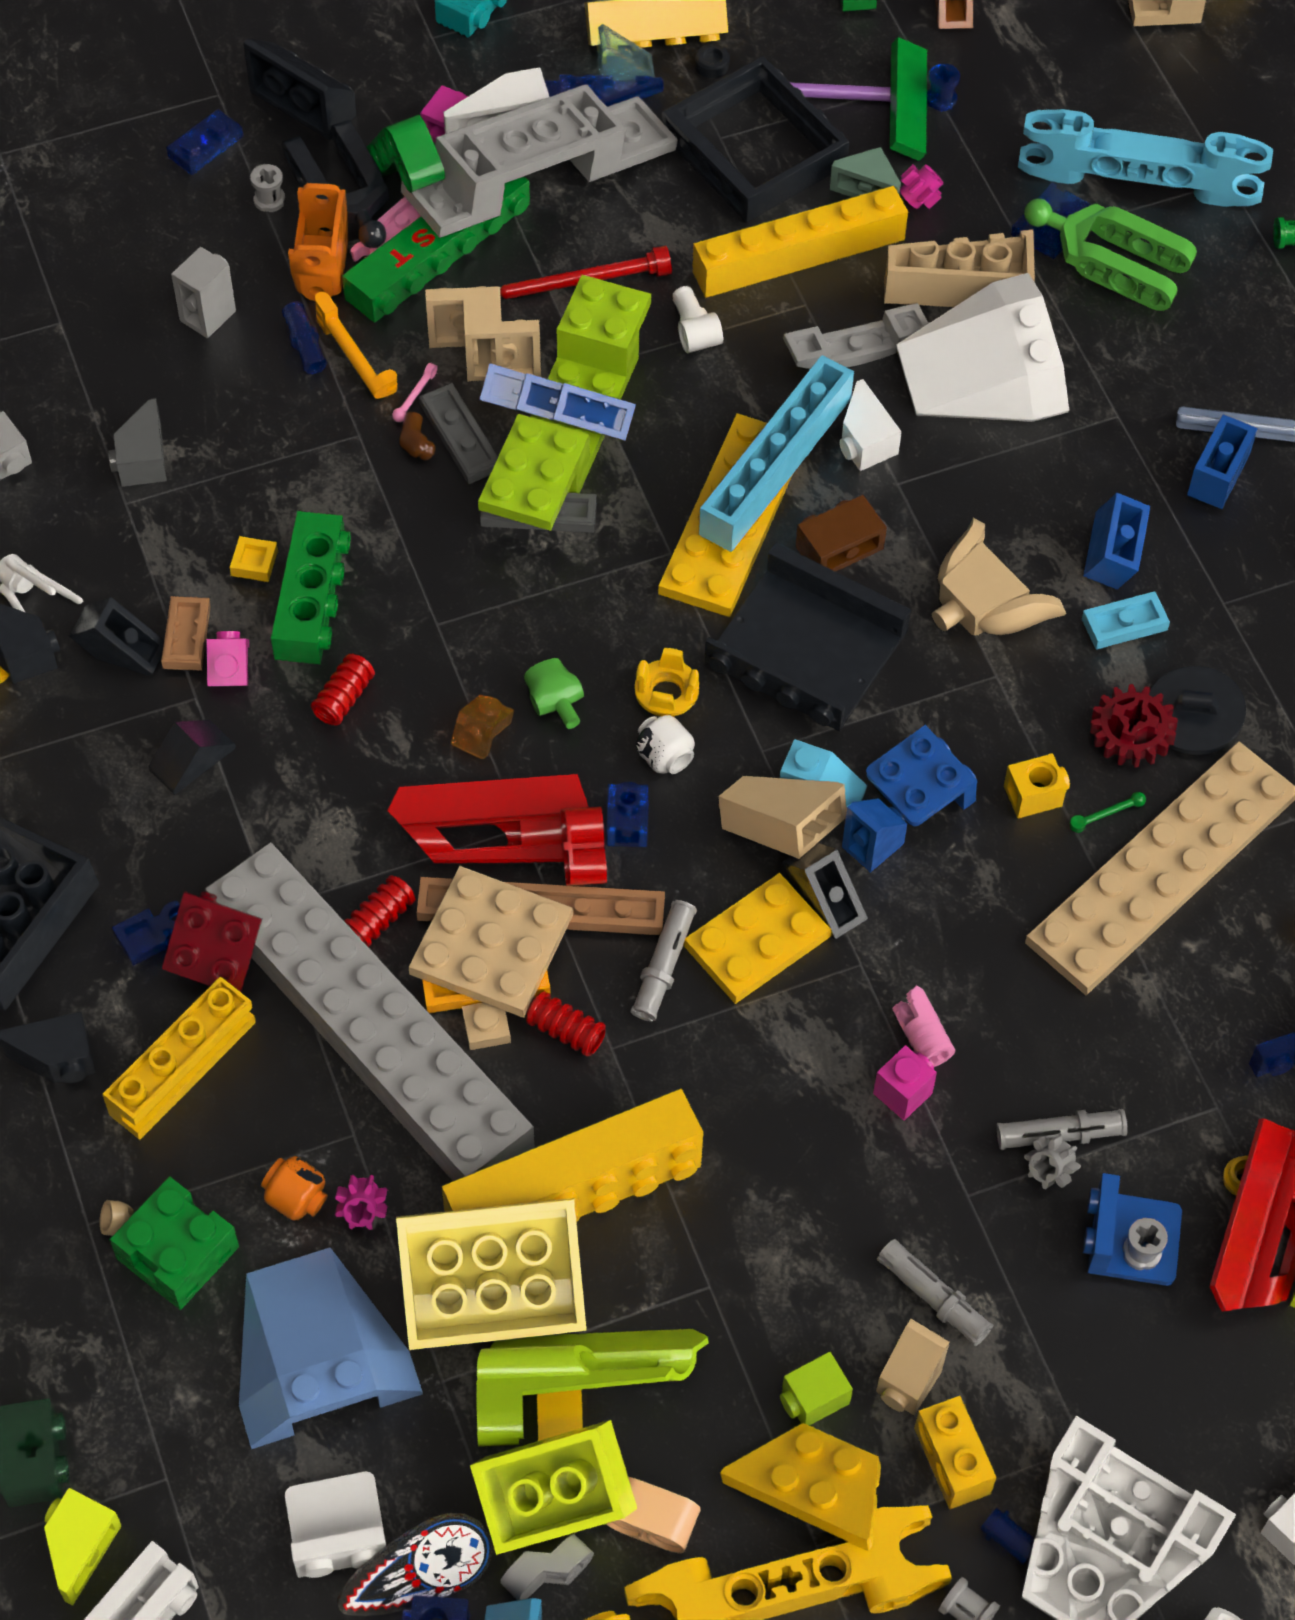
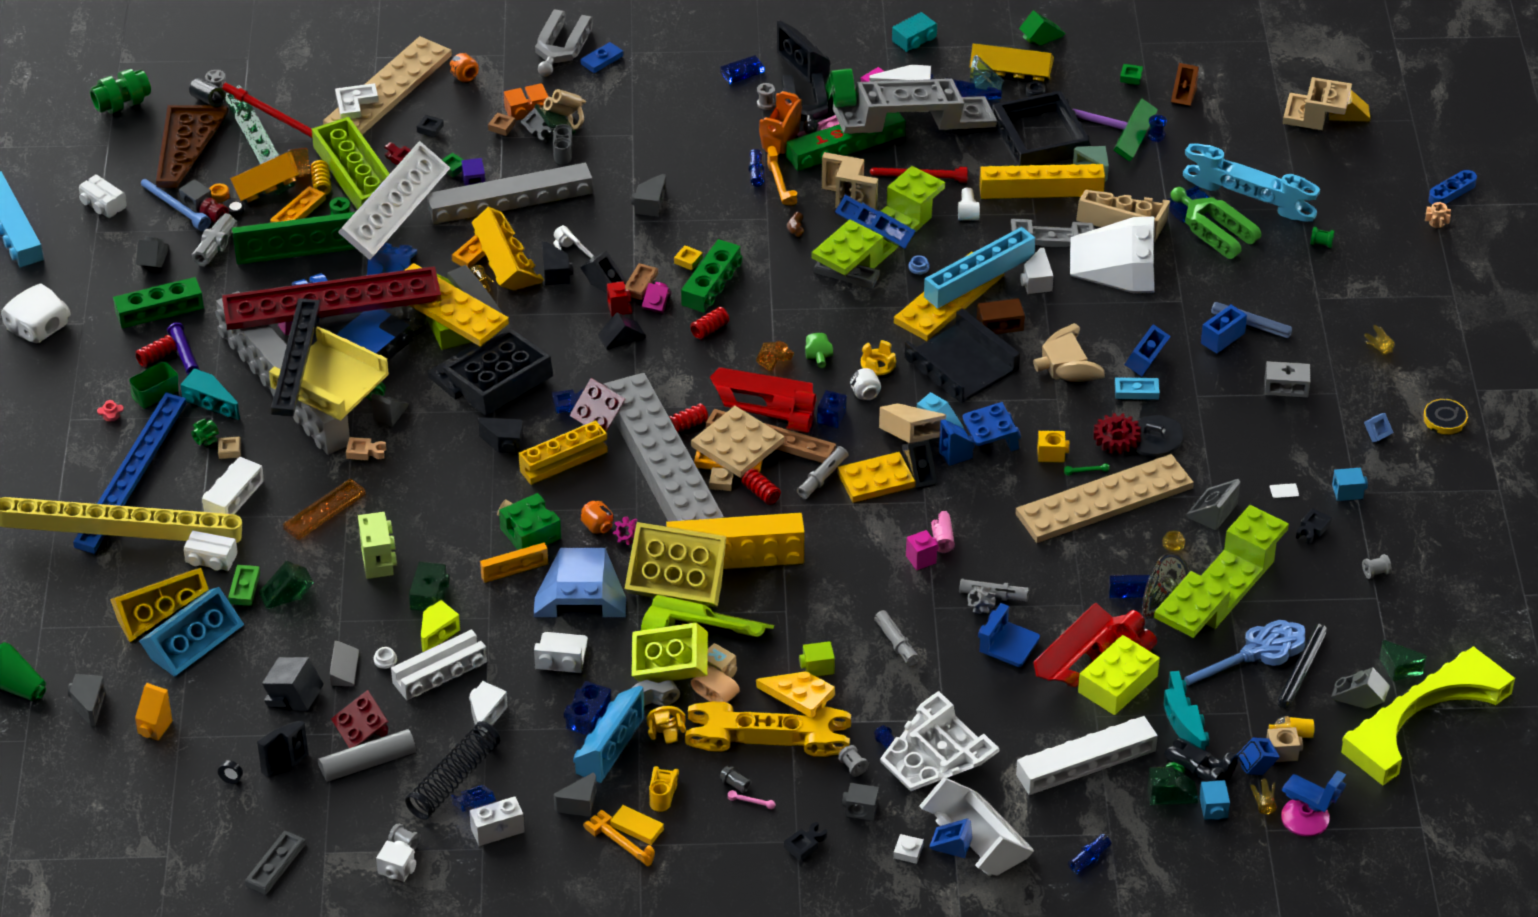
camera: 20 degrees right, 15 degrees down
(162, 684) = (618, 298): none -> red brick
(173, 1340) = (514, 562): none -> light orange plate
(204, 291) = (711, 133): light grey brick -> none
(428, 1560) = (602, 667): shield -> none
(429, 373) = (817, 197): bright pink hinge -> none
(459, 432) = (818, 224): dark grey tile -> none
(646, 1456) = (722, 660): none -> tan brick
(658, 457) = (919, 265): none -> medium blue plate
(912, 1368) = (869, 659): tan slope -> none
(921, 186) = (1121, 170): dark pink gear -> none
(955, 1452) = (875, 699): yellow brick -> none
(1143, 1231) = (1010, 644): light grey bush -> none

